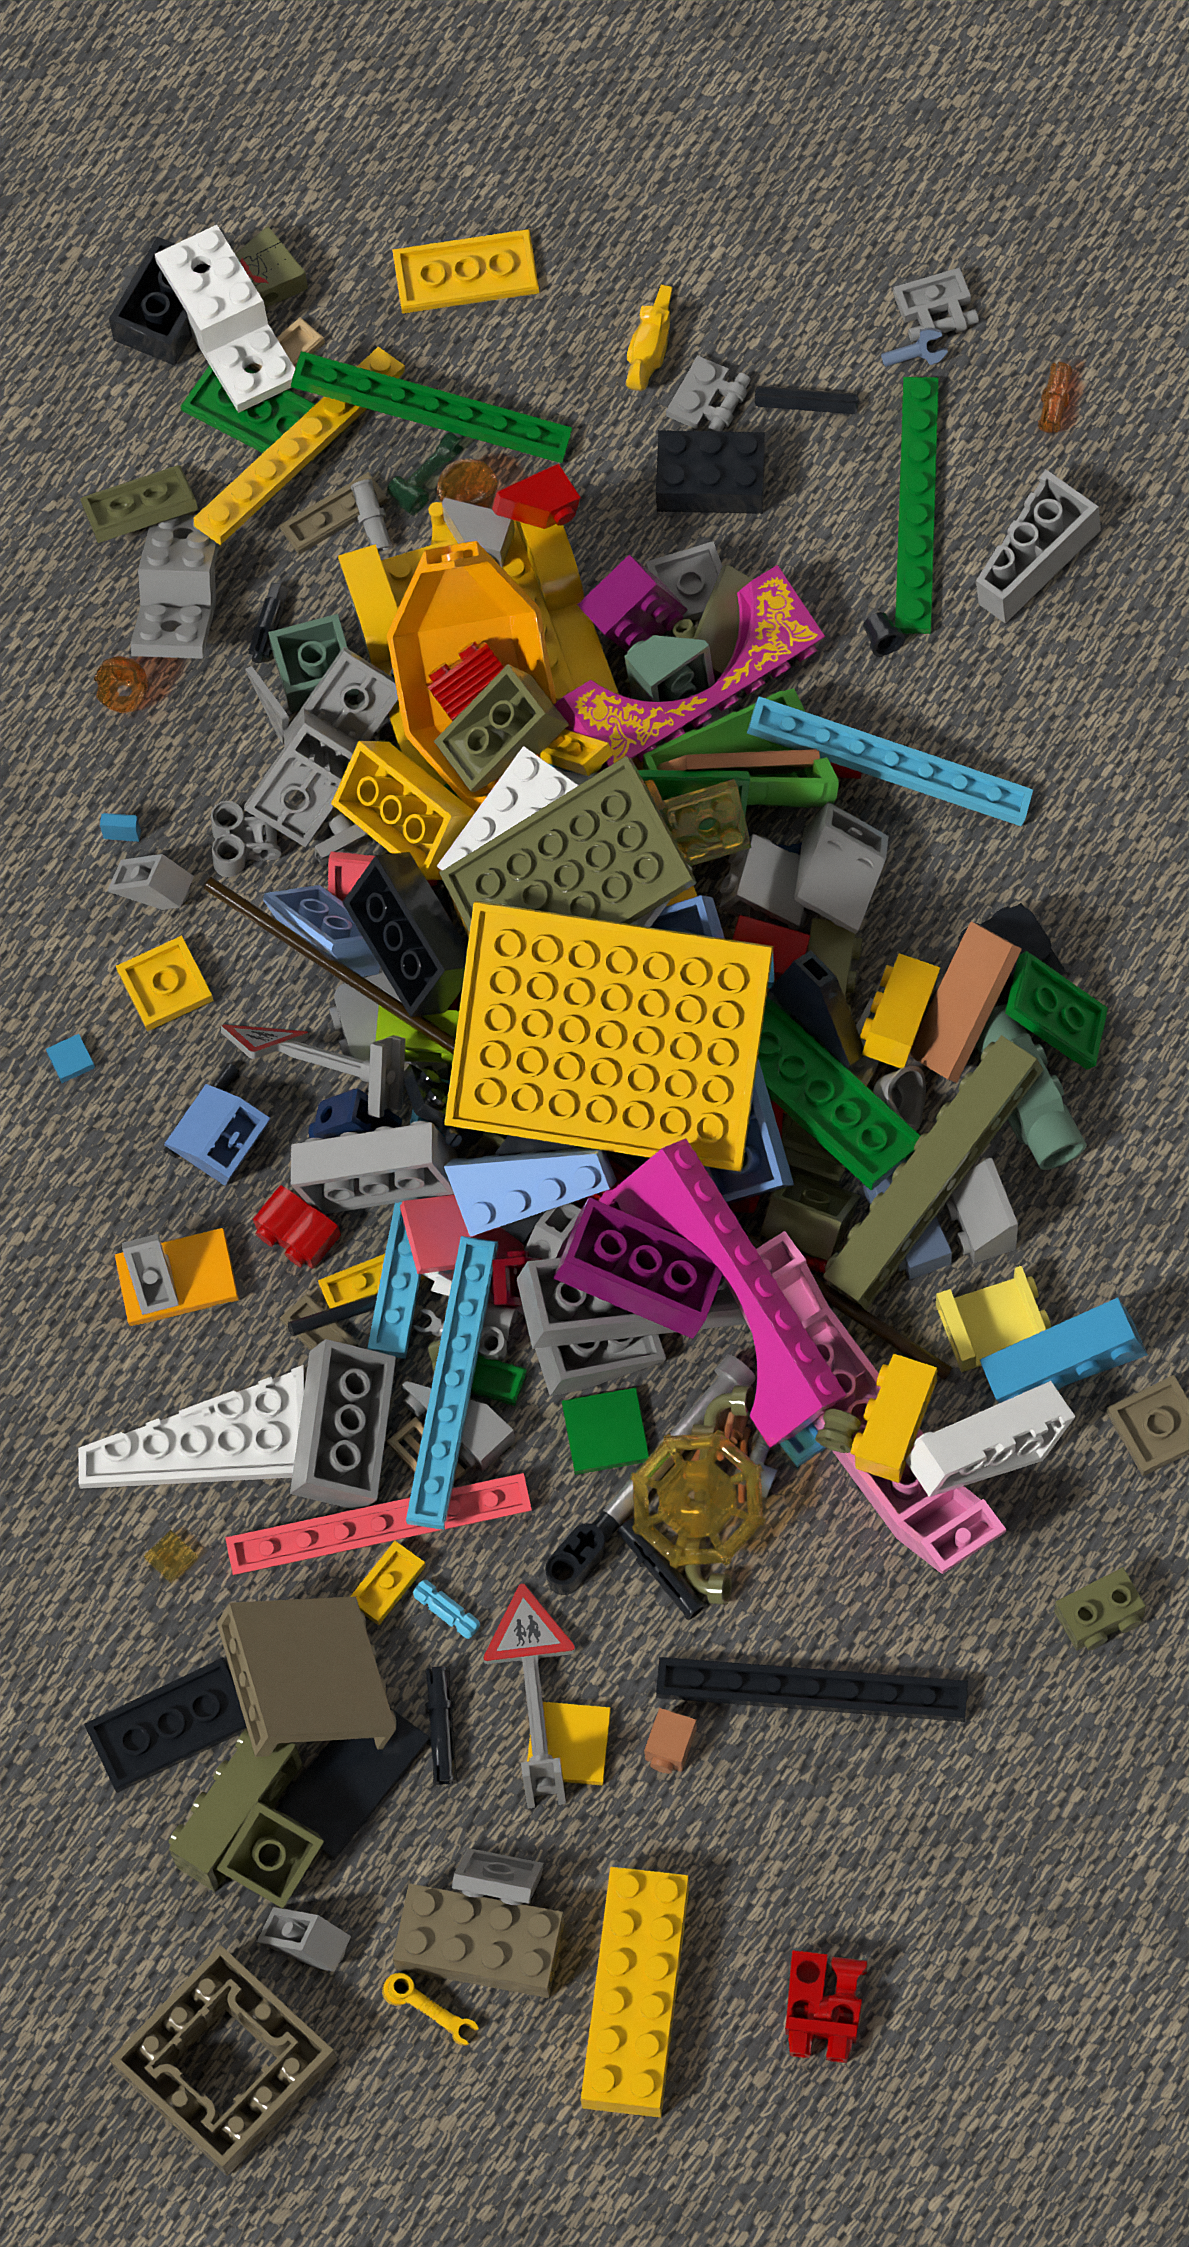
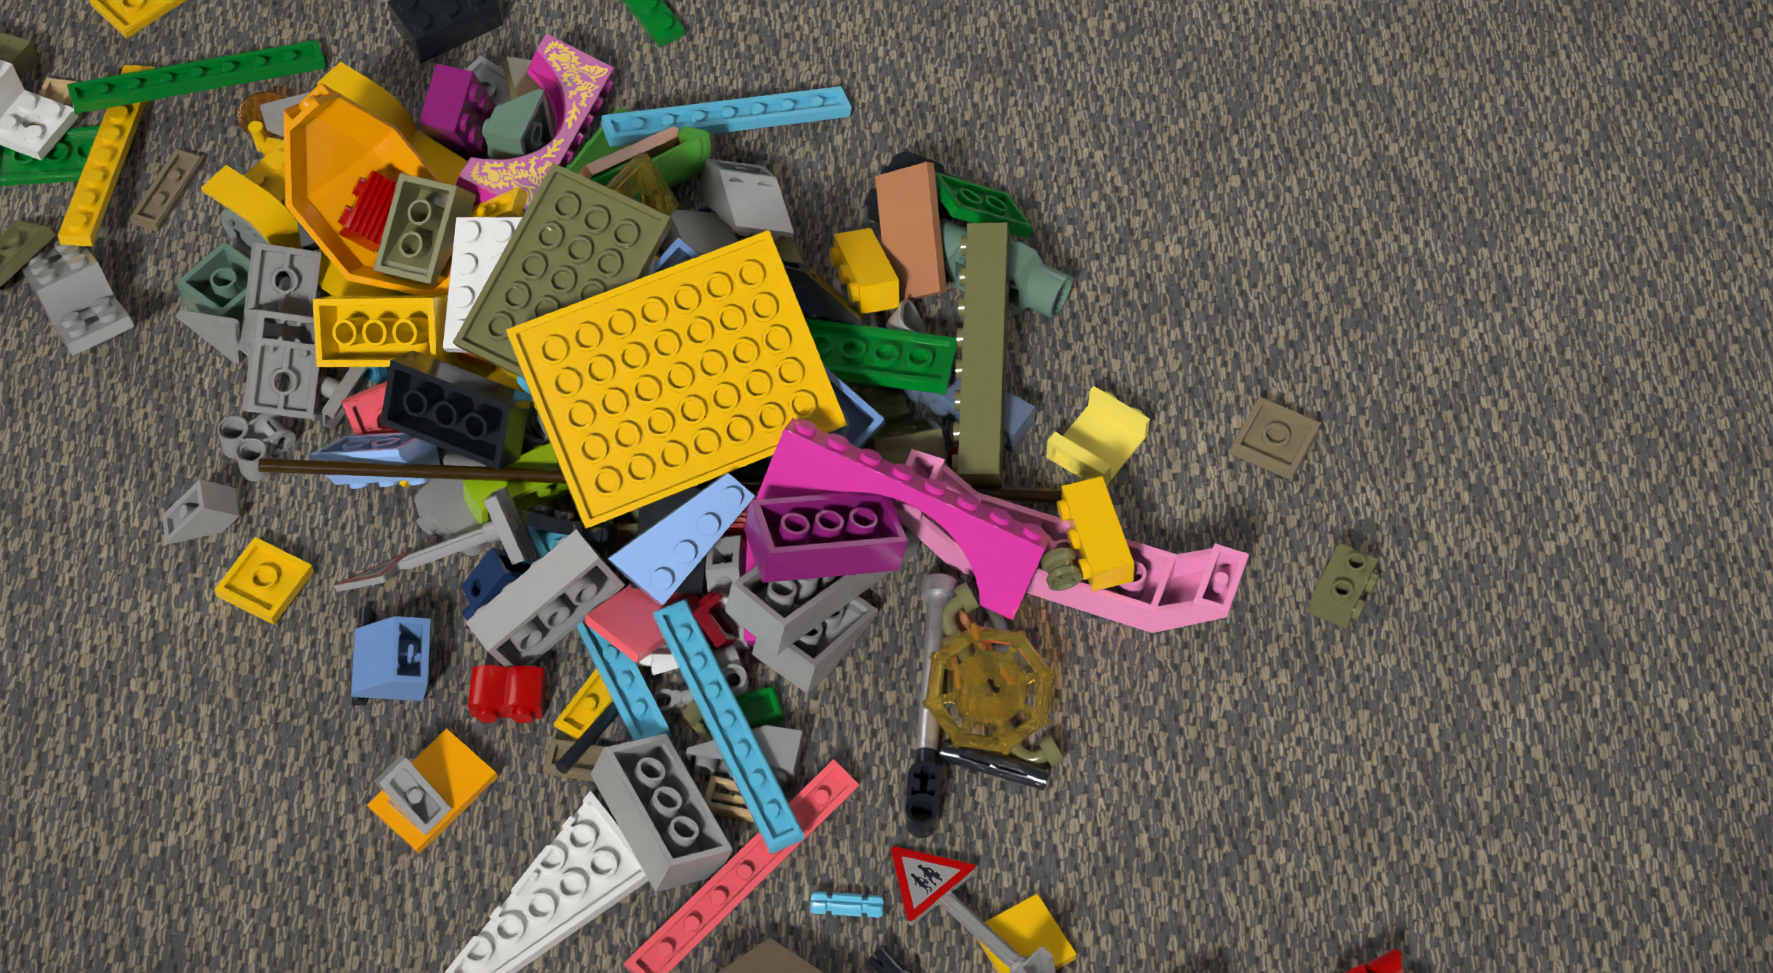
camera: 40 degrees left, 10 degrees down
(70, 1058) = (221, 681): dark azure tile -> none
(118, 672) = (74, 379): clear orange hair -> none
(120, 827) = (146, 489): dark azure tile -> none
(268, 621) = (167, 286): black piece -> none
(371, 515) = (199, 171): light grey pin -> none
(387, 1582) = (785, 911): yellow plate -> none
(409, 491) = (219, 144): clear green brick -> none
(539, 499) = (339, 63): red slope -> none
(605, 1431) = (869, 693): green tile -> none
(670, 1741) = (1105, 887): nougat brick -> none
(802, 1445) = (1030, 610): dark azure tile -> none
(812, 1689) = (1178, 780): black plate -> none
(883, 634) = (653, 49): black piece -> none
(983, 1214) = (1038, 366): light grey slope -> none
(991, 1441) = (1178, 508): white wedge -> none
(1066, 1352) = (1172, 427): dark azure wedge -> none

